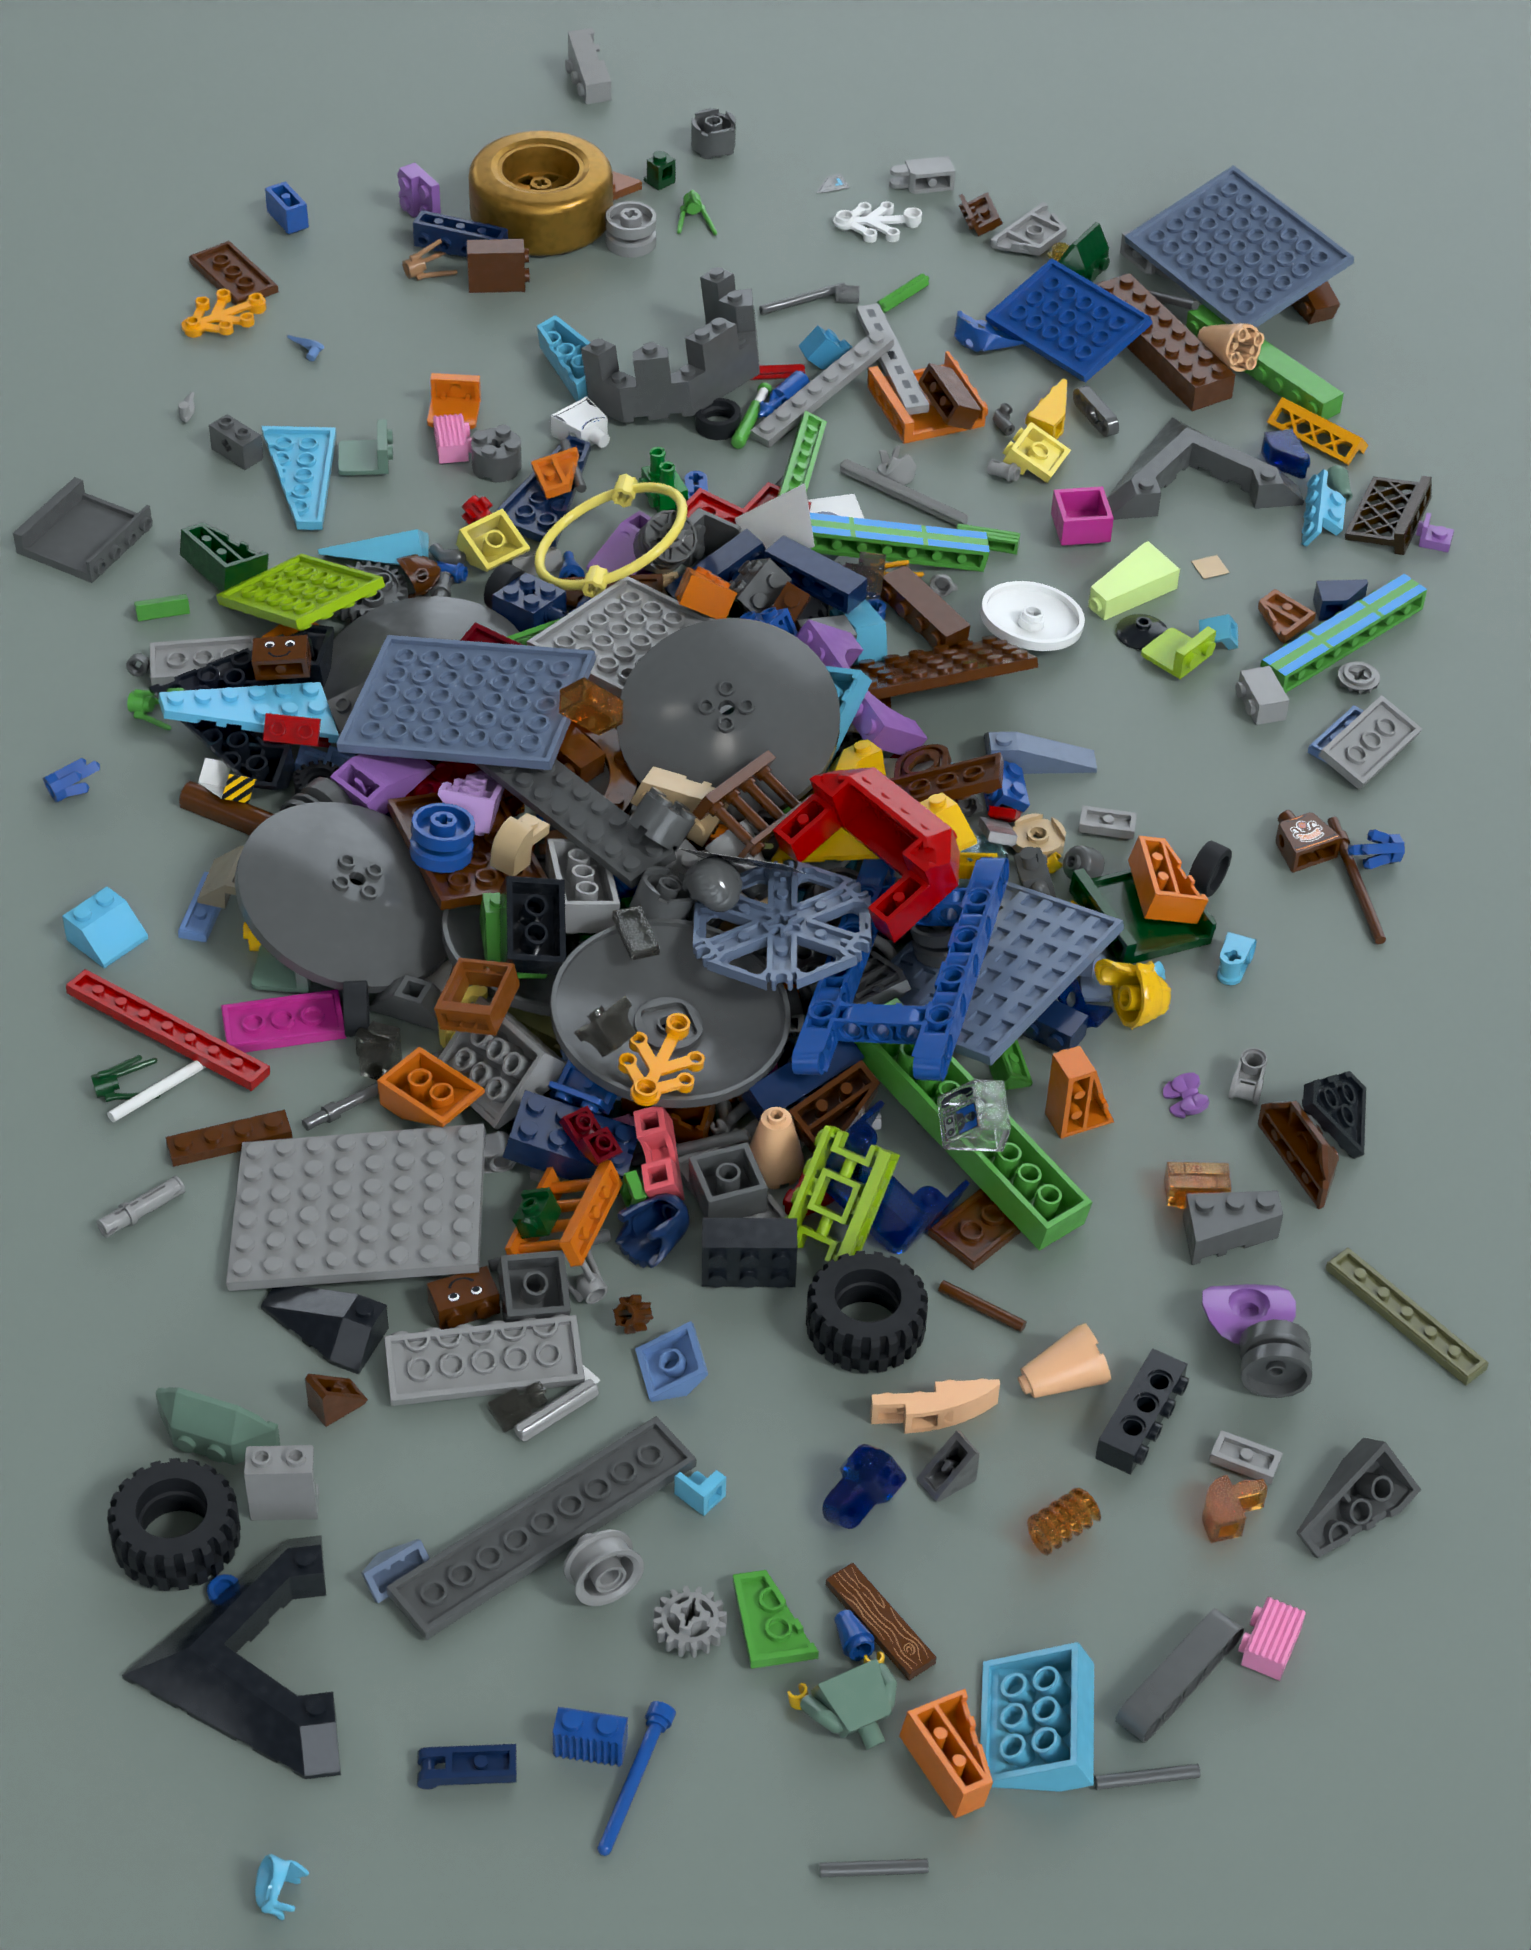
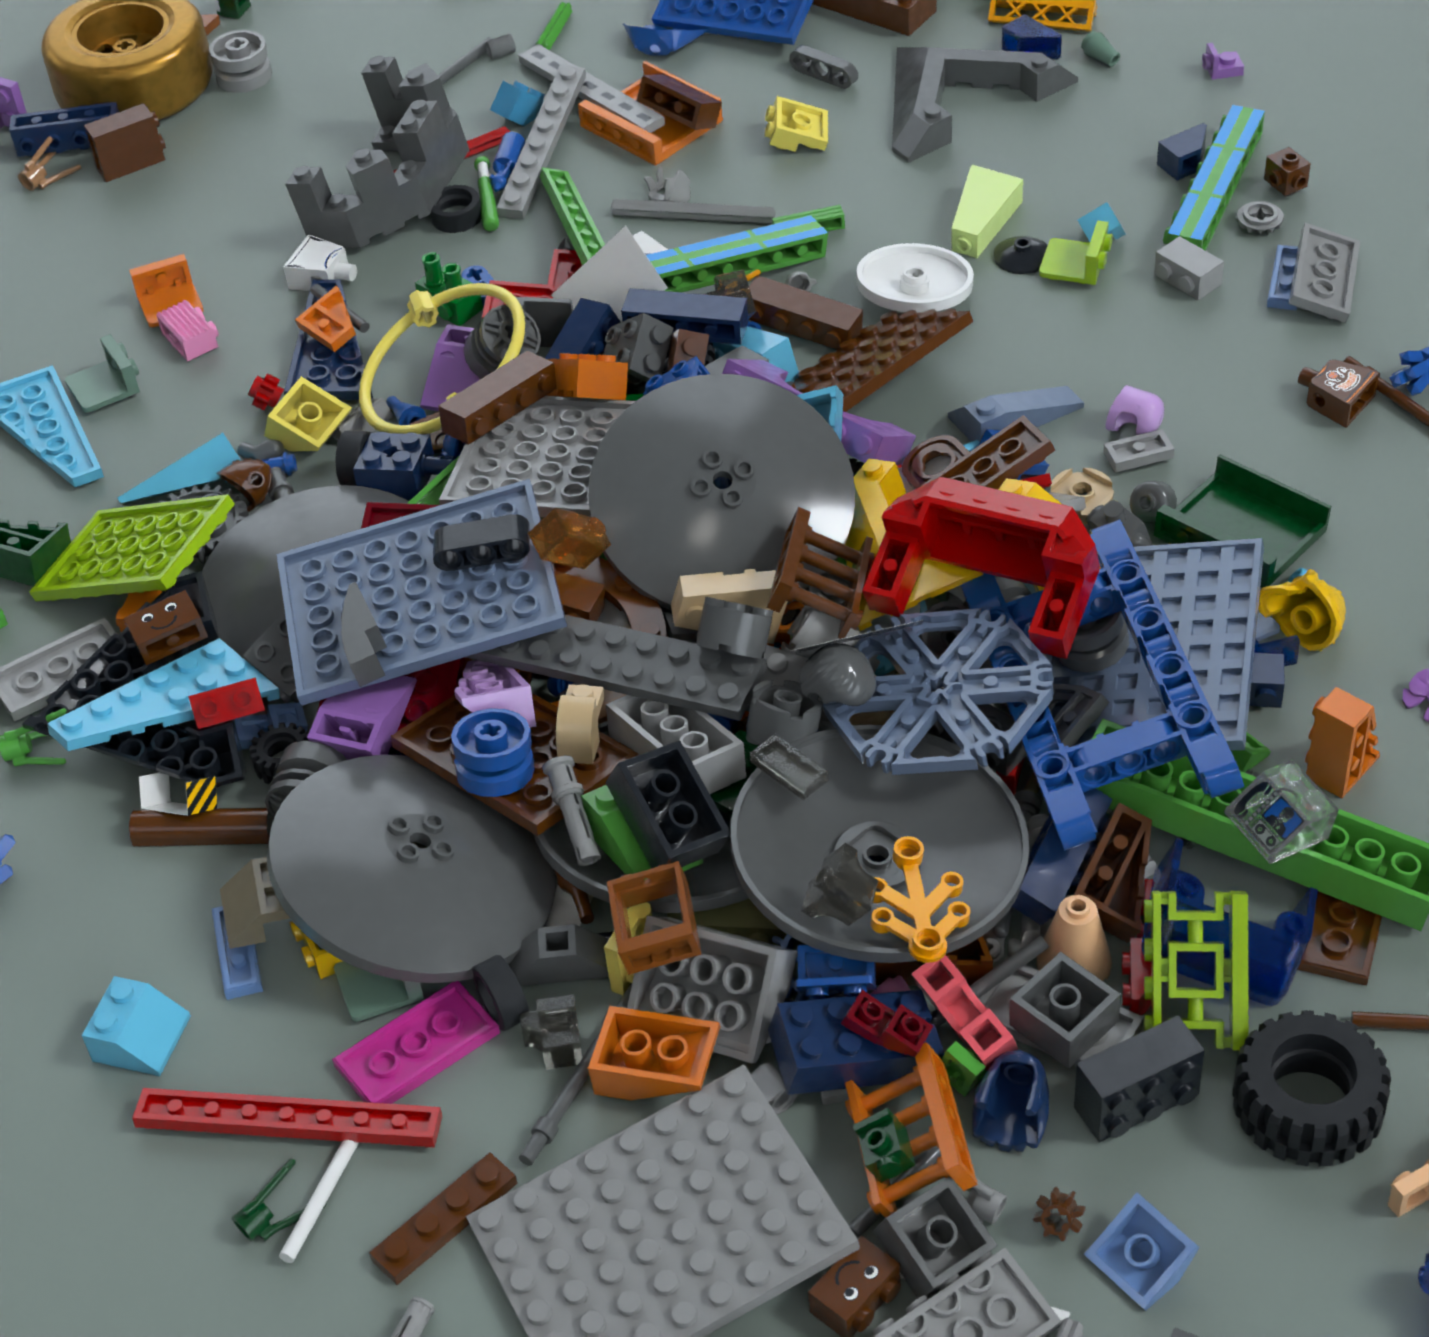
camera: 20 degrees left, 0 degrees up
(400, 717) = (361, 637): none -> dark grey slope
(473, 888) = (568, 795): none -> light grey pin
(496, 454) = (248, 327): dark grey brick -> none
(525, 683) = (481, 542): none -> black beam
(563, 350) = (260, 202): medium azure wedge -> none
(623, 581) = (497, 397): none -> reddish brown brick
(693, 205) = (286, 18): bright green plant -> none
(1002, 417) = (737, 107): dark grey arm -> none
(1004, 470) = (772, 153): light grey pin -> none
(1051, 411) = (782, 79): yellow slope -> none
(1082, 515) = (889, 165): dark pink piece -> none
(1130, 789) = (1138, 408): none -> lavender helmet
(1162, 884) = (1251, 488): orange wedge -> none
(1210, 566) = (1038, 169): tan sticker -> none
(1210, 867) = (1280, 452): black tyre -> none
(1235, 957) = (1367, 534): medium azure piece -> none
(1285, 614) = (1146, 186): dark orange wing -> none
(1323, 509) = (1102, 77): medium azure bracket -> none
(1407, 515) = (1185, 53): dark brown fence -> none
(1407, 647) = (1287, 171): none -> reddish brown brick

